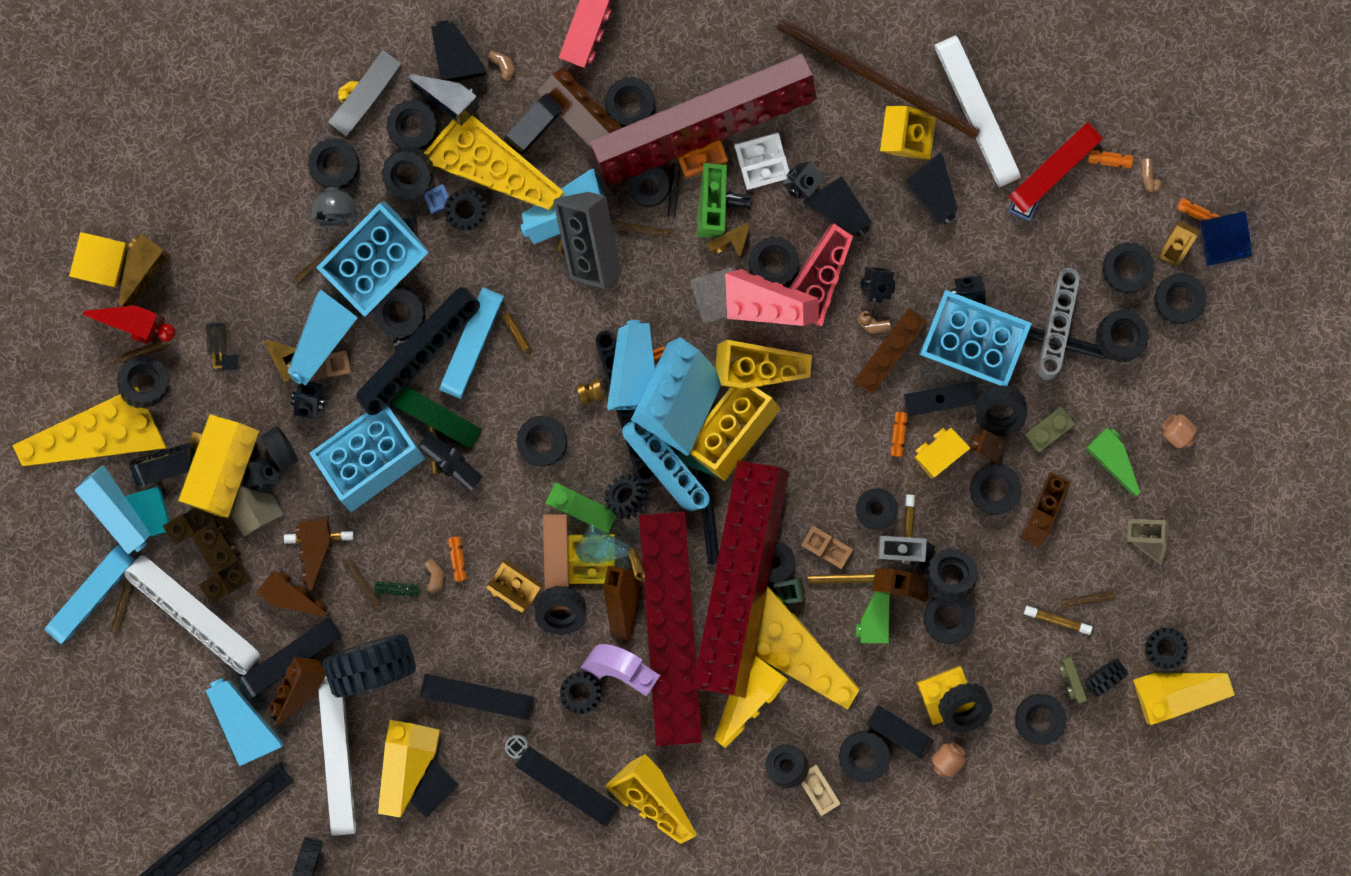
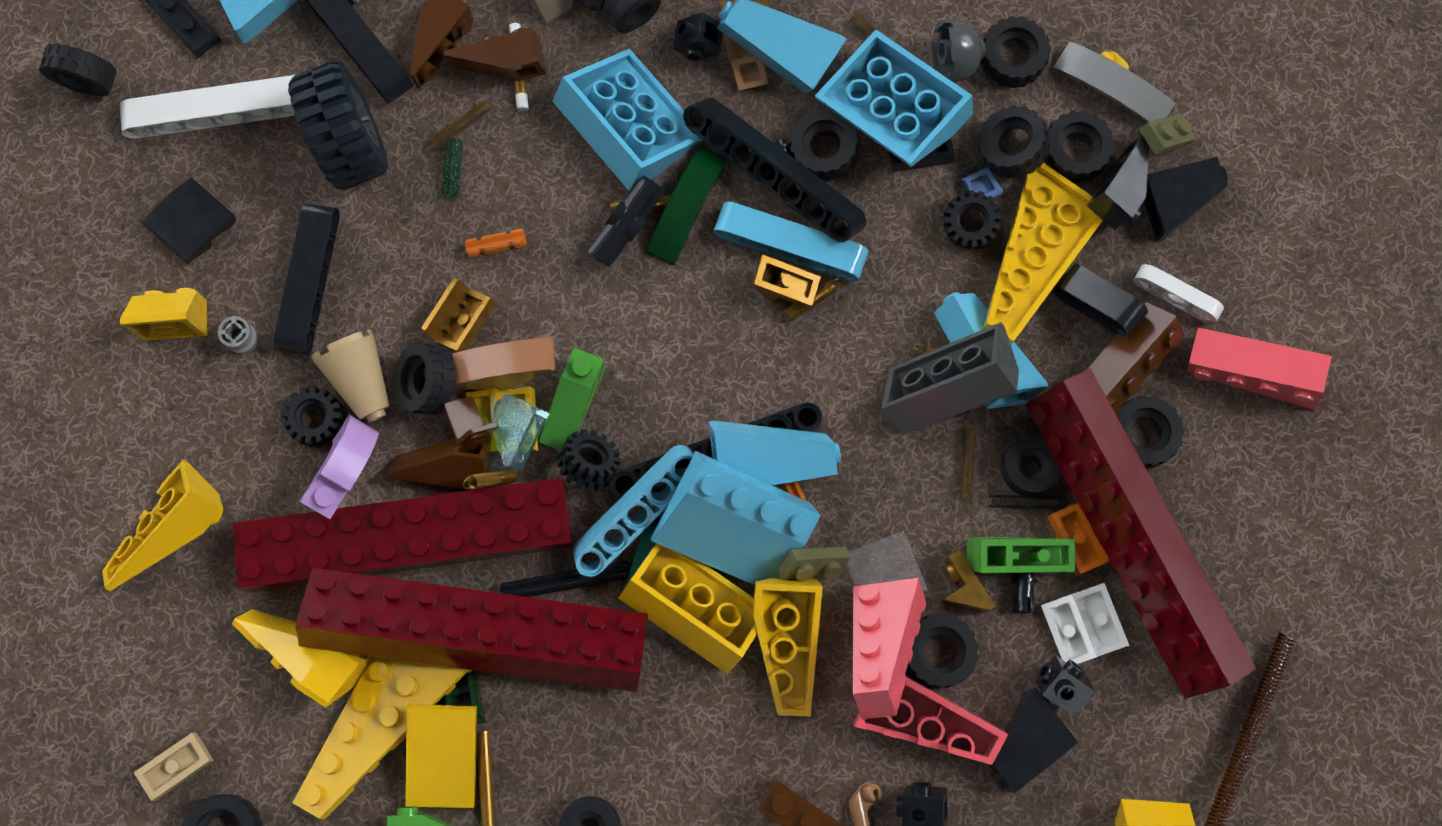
camera: 80 degrees right, 10 degrees down
(298, 686) = (312, 44): reddish brown slope -> none
(406, 758) = (223, 189): yellow wedge -> none
(409, 59) = (1167, 133): none -> olive plate
(437, 576) = (469, 217): medium nougat arm -> none
(498, 796) = (166, 315): none -> yellow slope
(505, 64) = (1179, 260): medium nougat arm -> none
(505, 348) = (784, 281): none -> slope
(524, 441) = (662, 318): black tyre -> none
(530, 66) = (1178, 294): none -> white beam
(552, 660) = (356, 374): none -> tan cone
(567, 786) = (179, 404): black beam -> none
(590, 392) = (734, 403): pearl gold wheel -> none
(594, 582) = (465, 421): none -> bracket
(709, 344) = (814, 563): none -> olive plate
(787, 563) = (501, 699): black tyre -> none
(787, 753) = (206, 697): black tyre -> none
(823, 606) = (441, 756): none -> yellow tile
(827, 547) = (529, 757): medium nougat slope -> none

